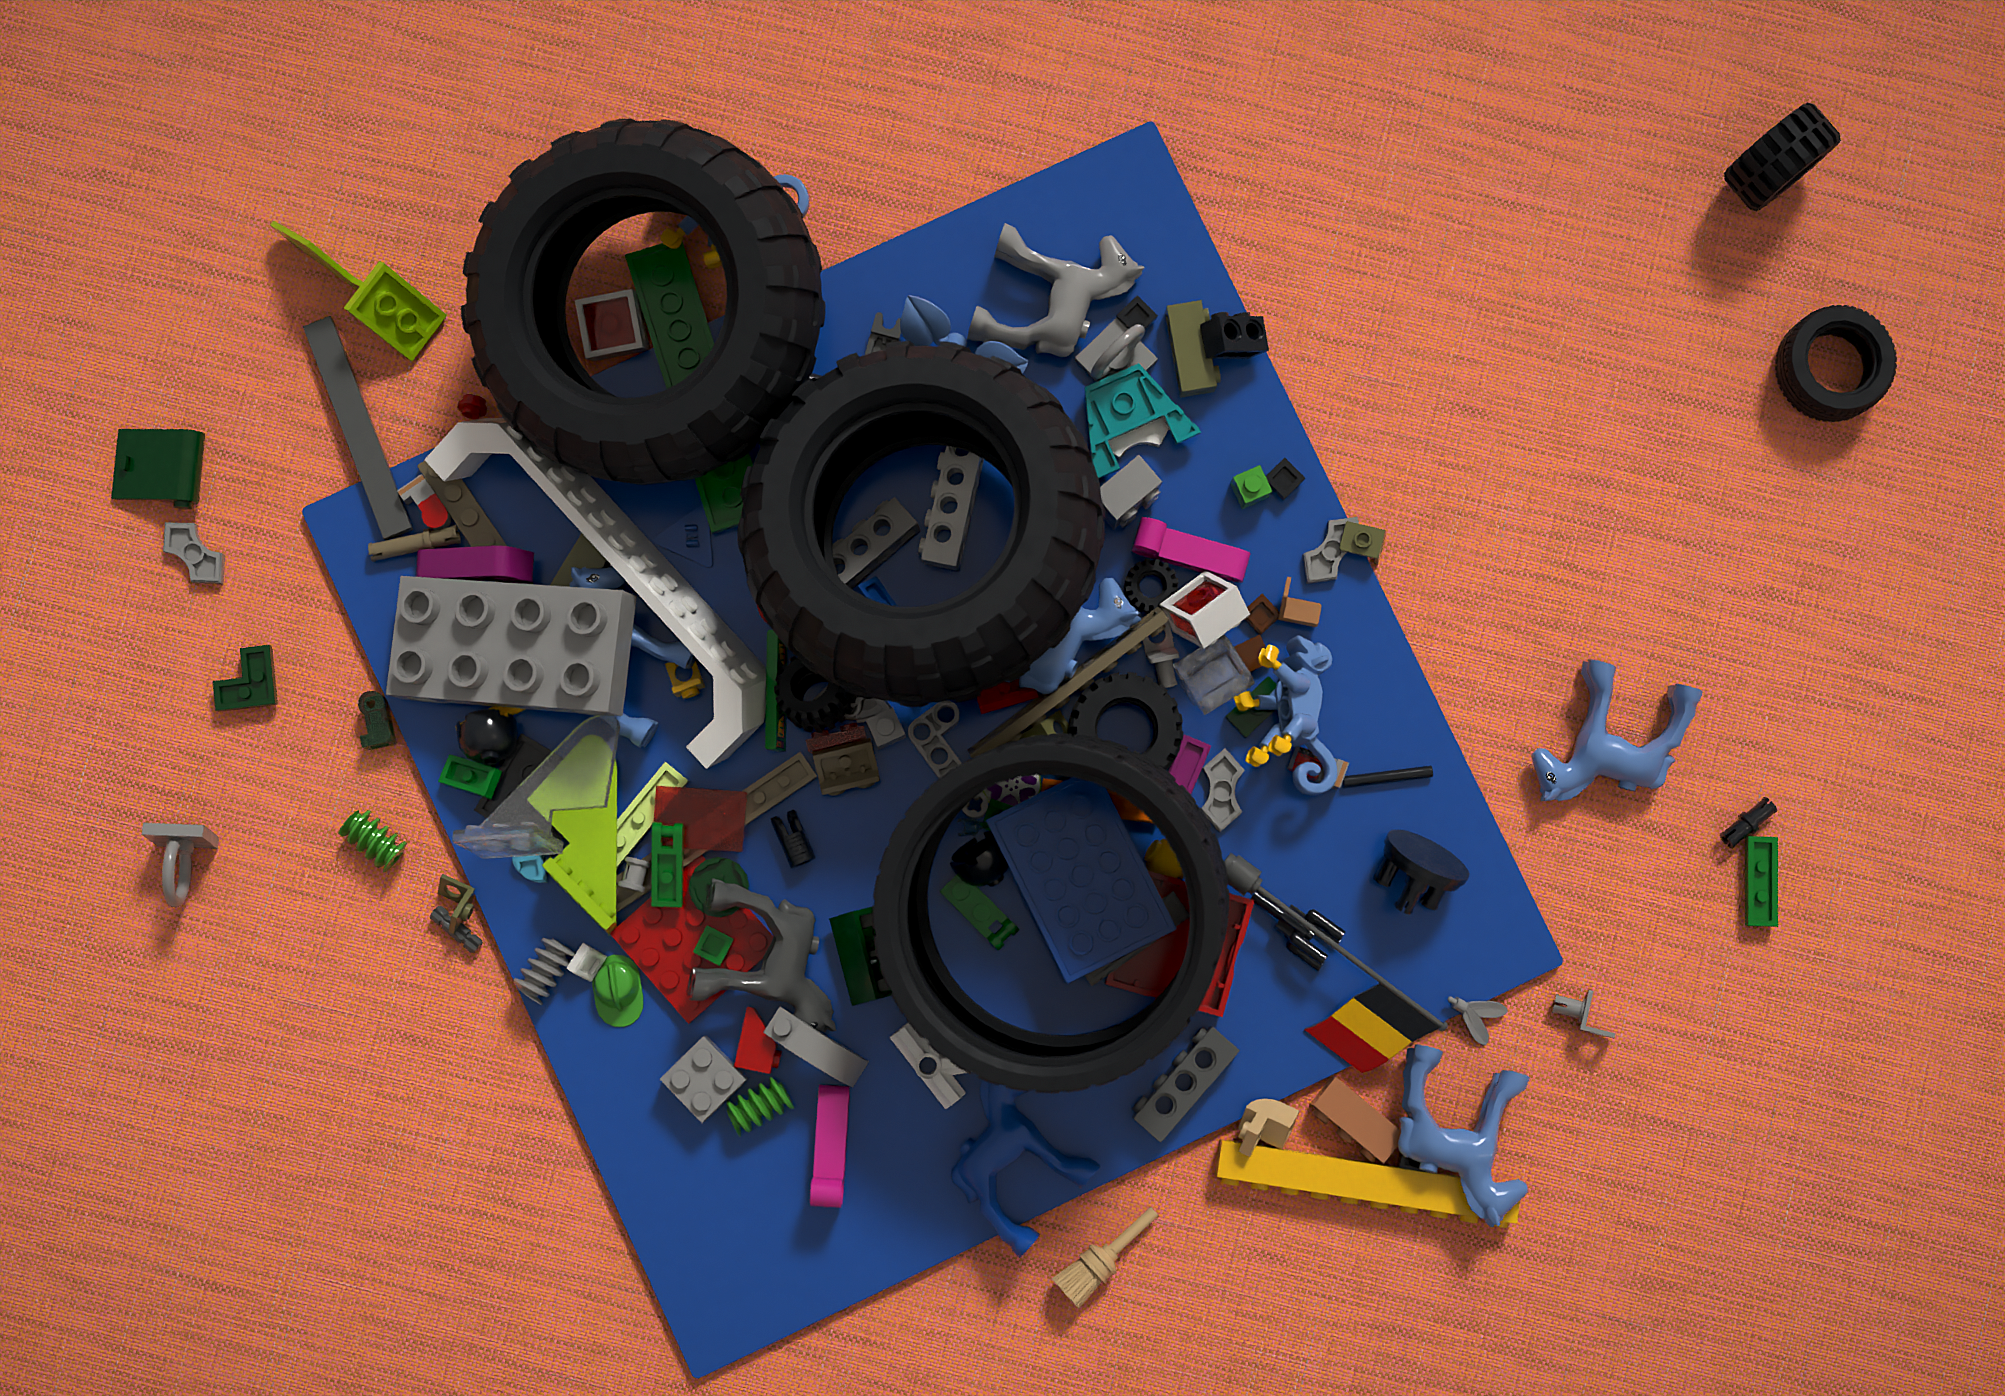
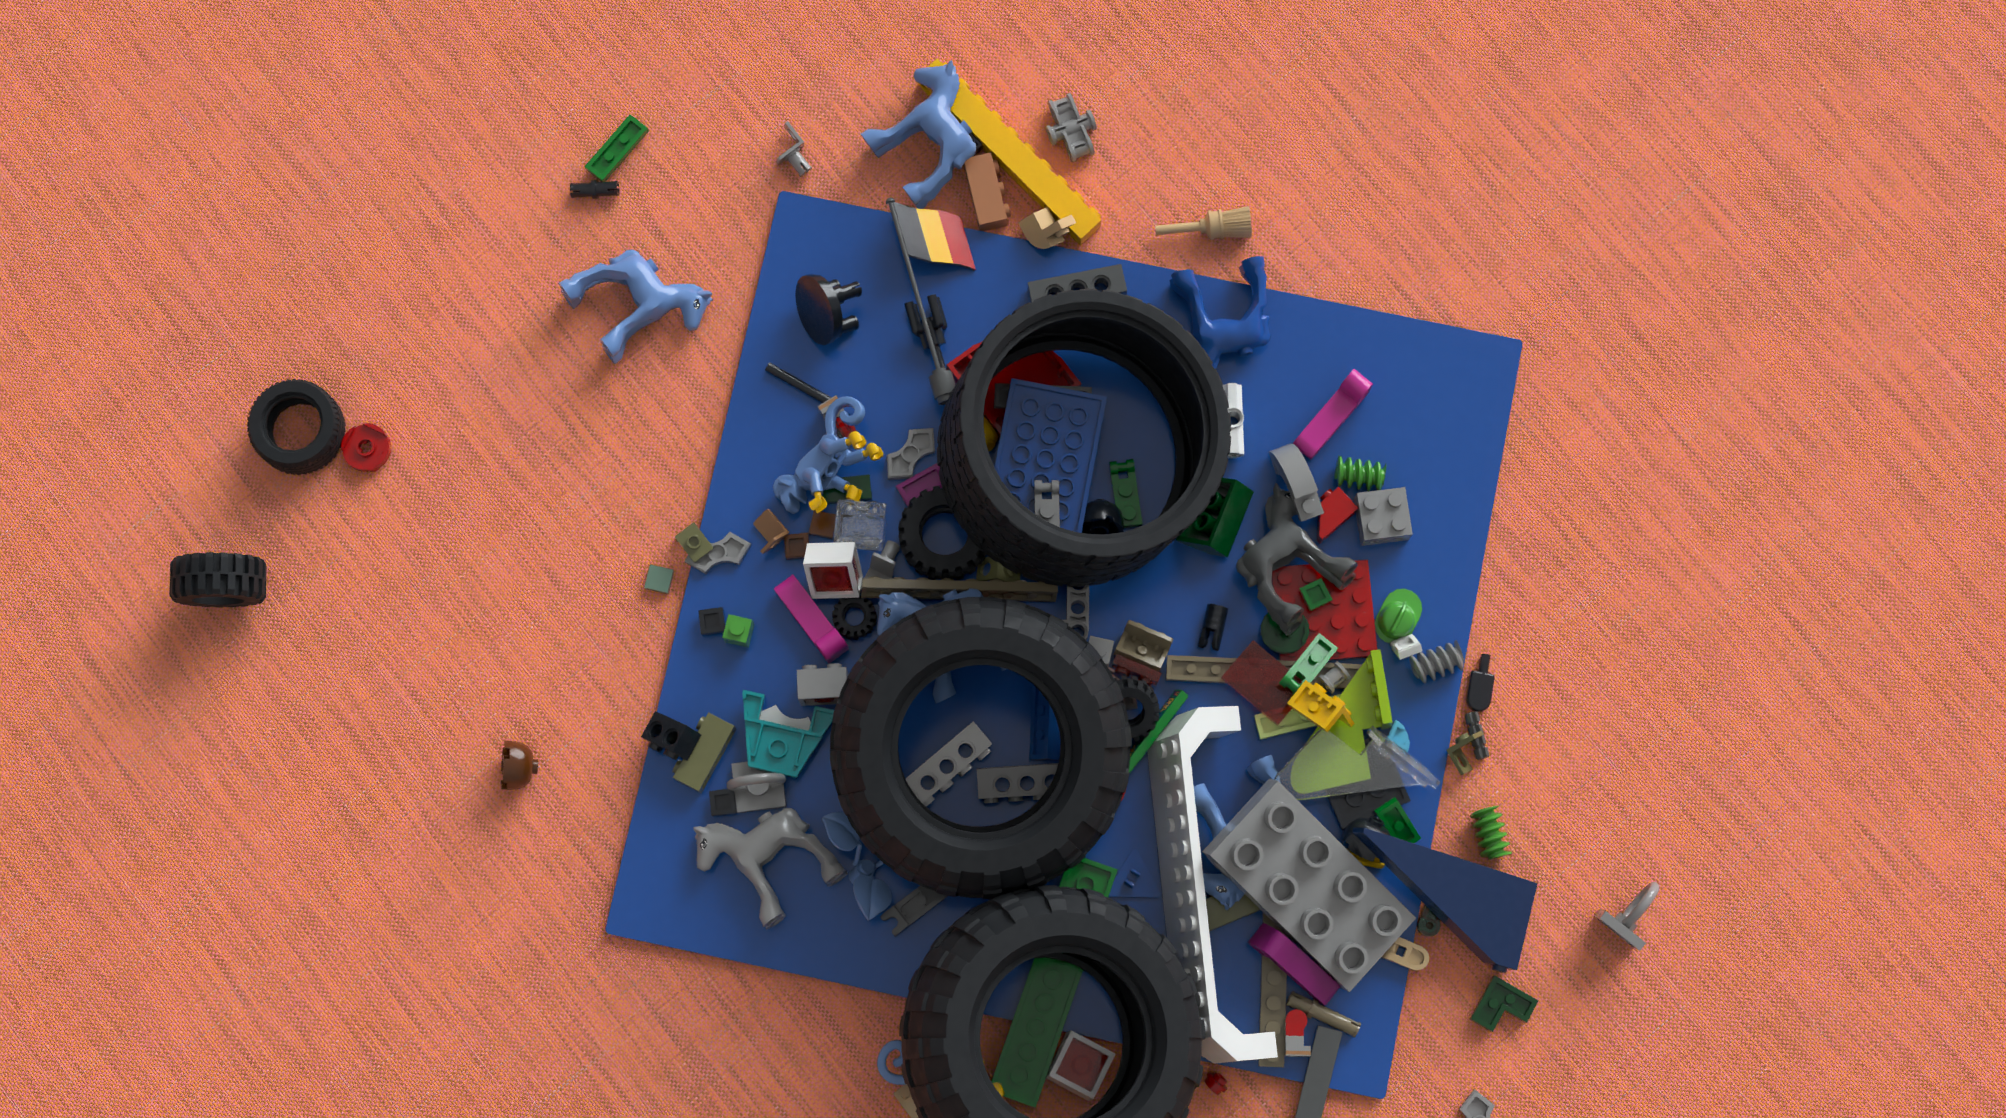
camera: 135 degrees left, 5 degrees down
(341, 756) = (1474, 901): none -> dark blue slope
(364, 660) = (1414, 957): none -> tan plate
(487, 982) = (1480, 686): none -> black piece
(623, 822) = (1318, 707): none -> yellow bracket
(685, 688) = (1209, 777): yellow bracket -> none
(1038, 819) = (1047, 508): none -> light grey plate
(1323, 1257) = (1071, 127): none -> light grey axle
(1358, 206) = (517, 765): none -> reddish brown cylinder
(1368, 485) = (659, 579): none -> sand green tile
(1472, 1012) = (859, 203): light grey piece -> none
(1761, 384) = (363, 434): none -> red plate

